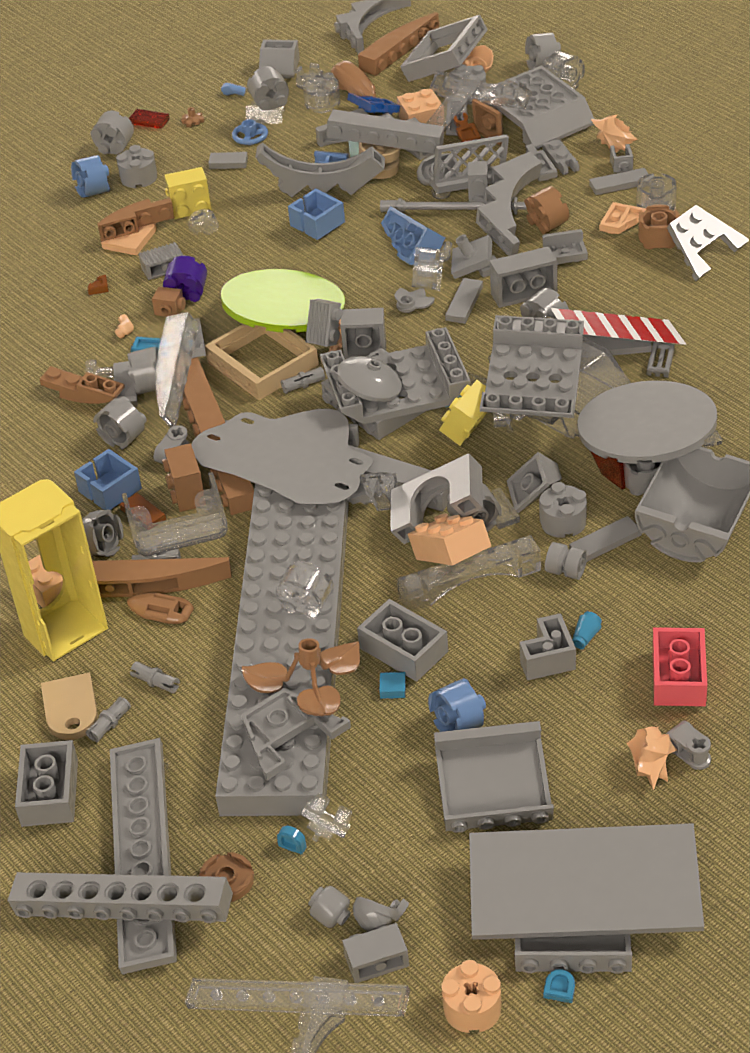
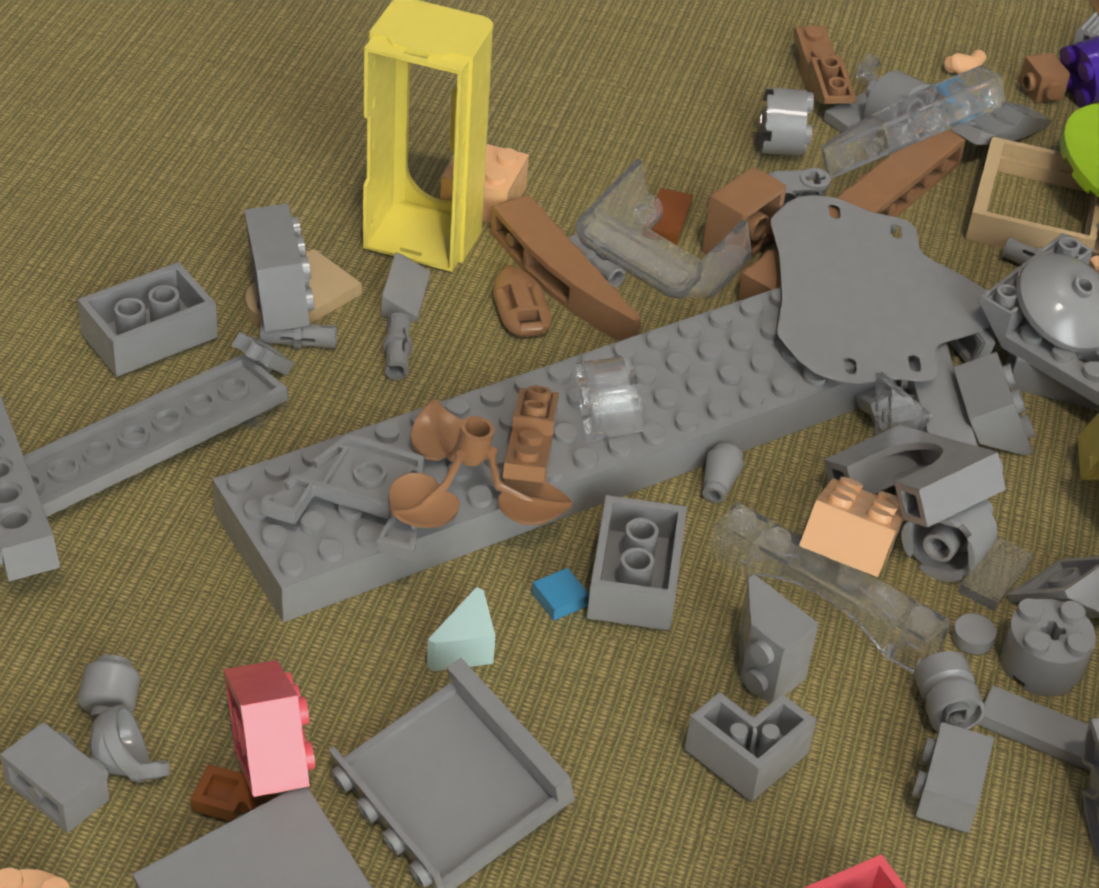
camera: 50 degrees right, 0 degrees up
(67, 698) = (279, 267): none -> light grey brick
(98, 286) = (1013, 14): dark orange tile -> none
(103, 532) = (583, 182): light grey cylinder -> none
(108, 656) = (404, 288): none -> light grey slope
(114, 478) = (680, 170): medium blue piece -> none
(119, 740) = (263, 354): none -> light grey plate
(234, 868) = (111, 562): medium nougat tile -> none
(290, 630) = (531, 435): none -> medium nougat slope
(291, 839) = (205, 600): dark azure tile -> none
(316, 813) = (253, 615): clear hips -> none
(358, 579) = (721, 471): none -> light grey cone
(398, 732) = (464, 635): none -> light aqua slope
(399, 445) = (993, 405): none -> light grey slope
(424, 833) = (268, 727): none -> brick
(436, 880) = (225, 794): none -> dark orange plate
(457, 707) = (549, 678): medium blue brick -> none
(493, 610) = (773, 642): none -> light grey slope
(533, 530) = (974, 634): none -> light grey tile
(586, 628) = (835, 779): dark azure cone -> none
(616, 583) = (954, 777): none -> light grey brick

